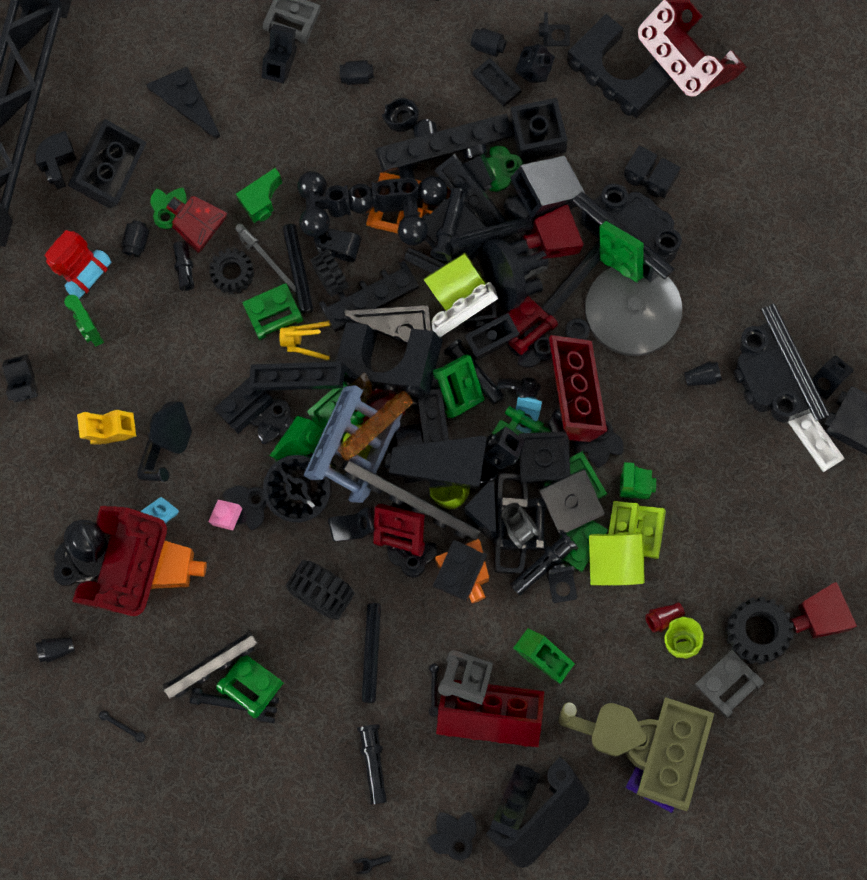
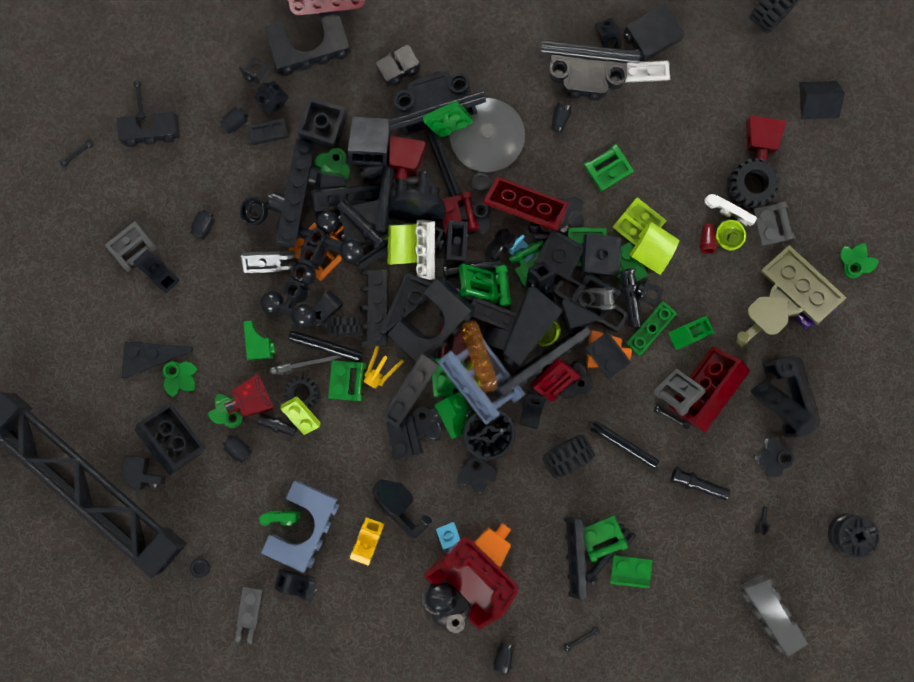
camera: 65 degrees left, 10 degrees up
(76, 262) = (233, 500): red piece -> none
(117, 360) = (301, 554): none -> sand blue arch
(177, 143) = (181, 379): none -> green plate
(206, 281) = (300, 415): none -> lime plate
(225, 515) = (475, 491): bright pink plate -> none
(229, 740) = (631, 571): none -> green plate
(354, 157) = (267, 261): none -> hinge
(363, 383) = (441, 350): dark brown tile -> none
(472, 415) = (502, 280): none -> green plate
(506, 607) = (643, 336): none -> green tile
(636, 482) = (610, 205): green arch -> none
(674, 465) = (611, 173): none -> green plate
(713, 620) = (729, 209): none -> white hinge
(749, 807) = (858, 258): none -> green plate

